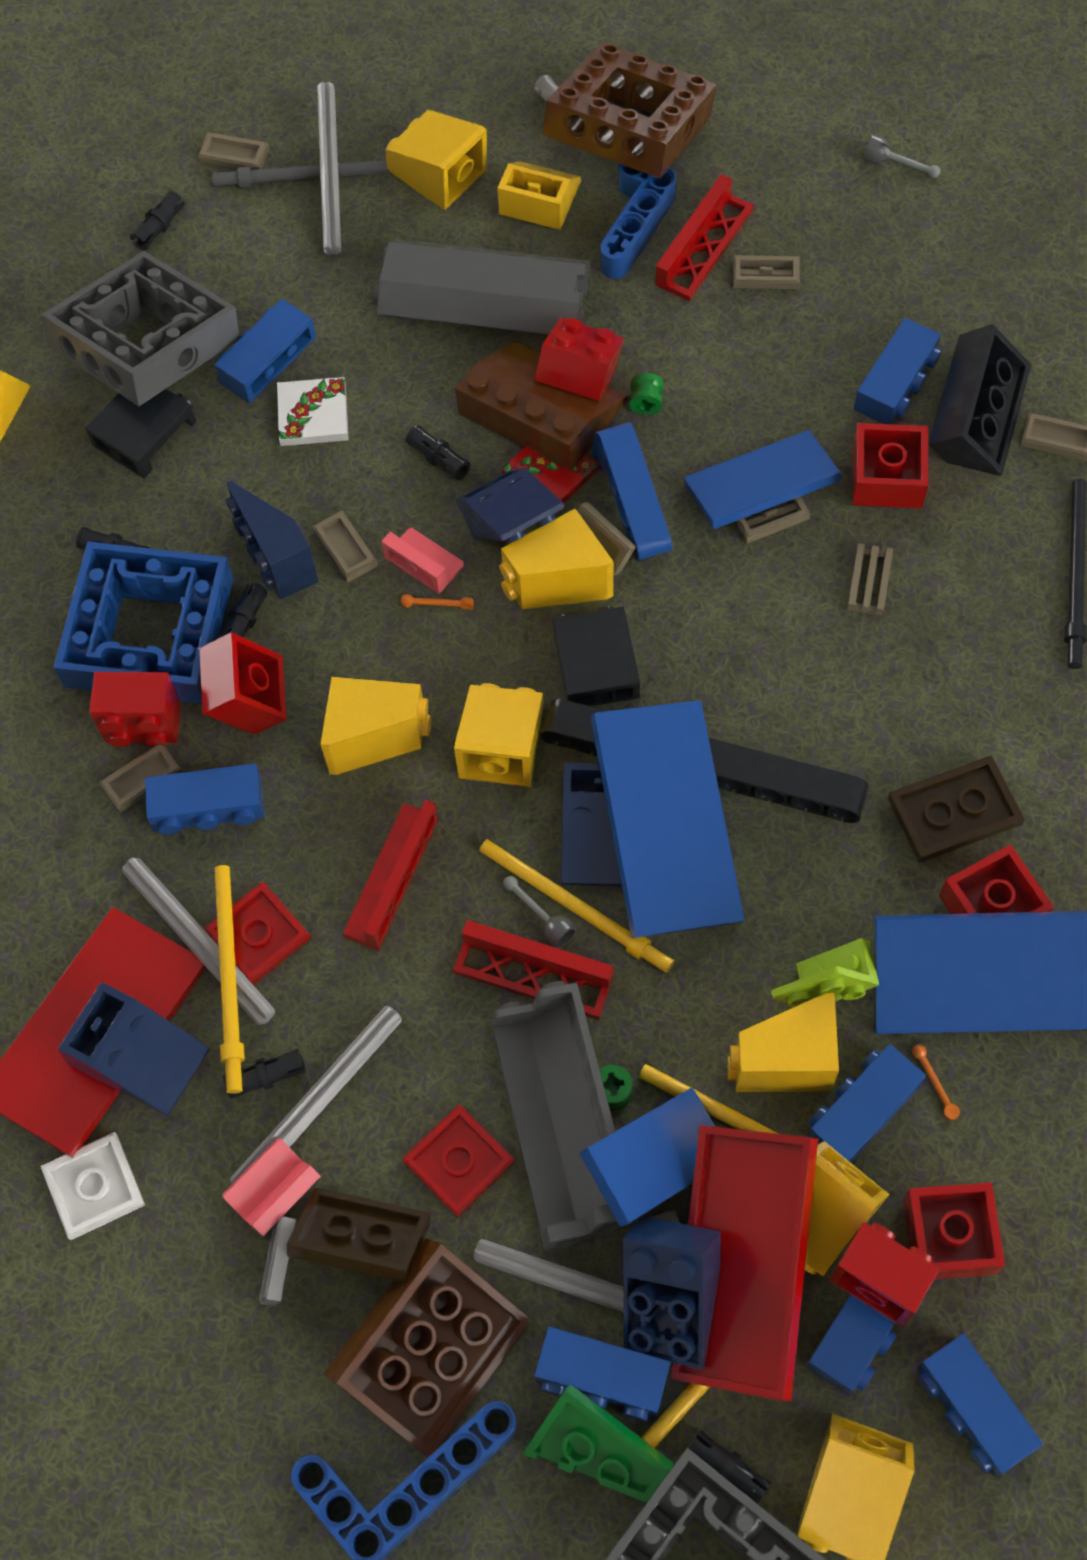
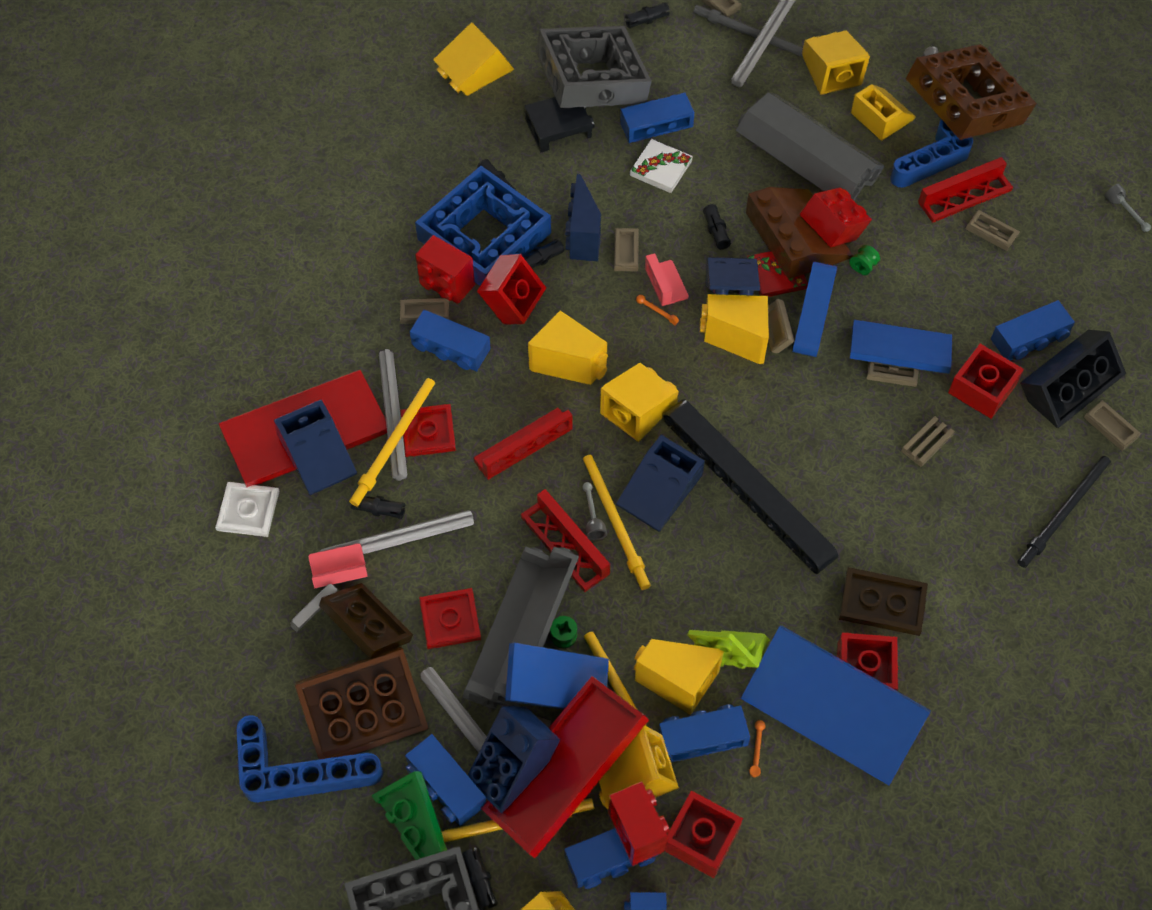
camera: 30 degrees right, 5 degrees down
(596, 656) = (726, 390): black brick -> none
(666, 819) = (699, 501): blue tile -> none

